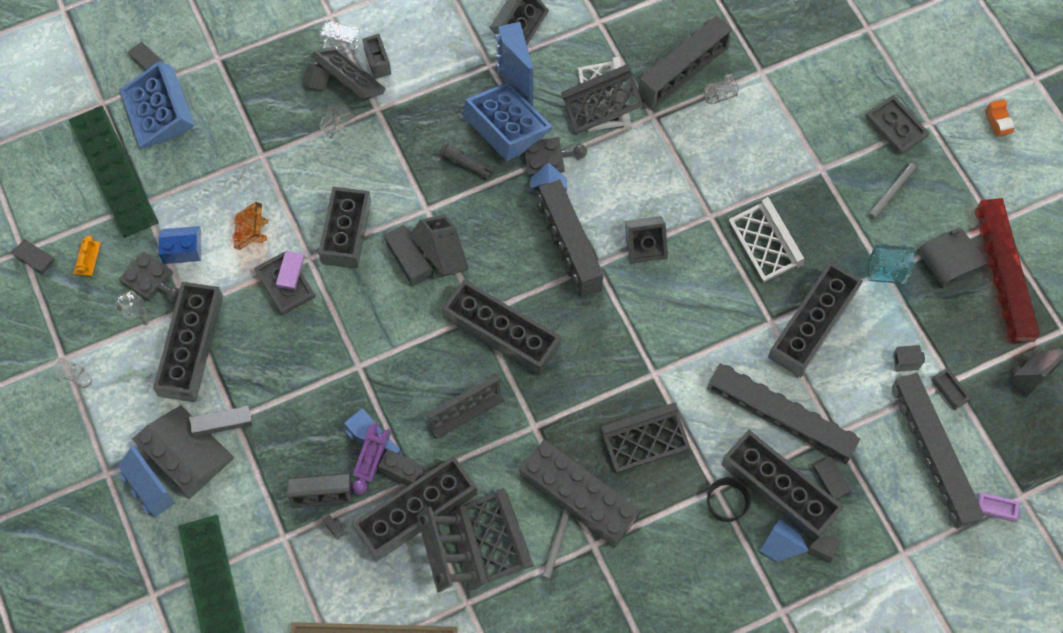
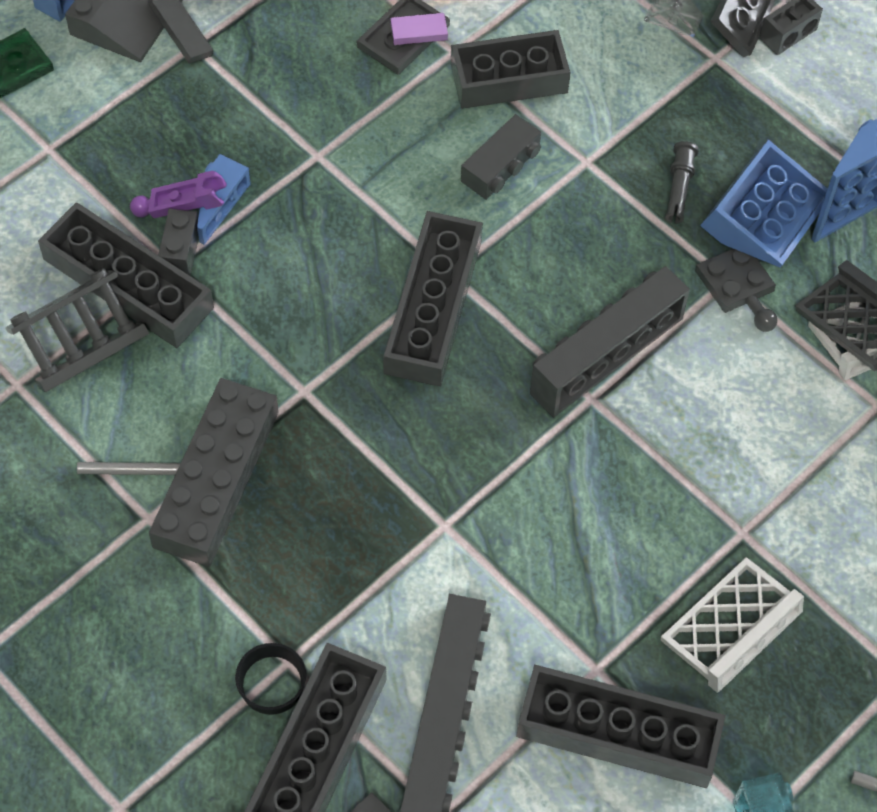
camera: 70 degrees right, 5 degrees down
(320, 490) = (118, 158): dark grey slope -> none
(334, 526) = (74, 191): dark grey plate -> none
(441, 244) = (528, 185): dark grey slope -> none
(465, 407) = (294, 287): dark grey fence -> none
(513, 529) = (135, 403): dark grey fence -> none
(547, 175) = (702, 294): medium blue slope -> none
(638, 421) = (351, 516): dark grey fence -> none
(646, 239) = (658, 448): dark grey slope -> none
(783, 542) = (229, 776): medium blue slope -> none

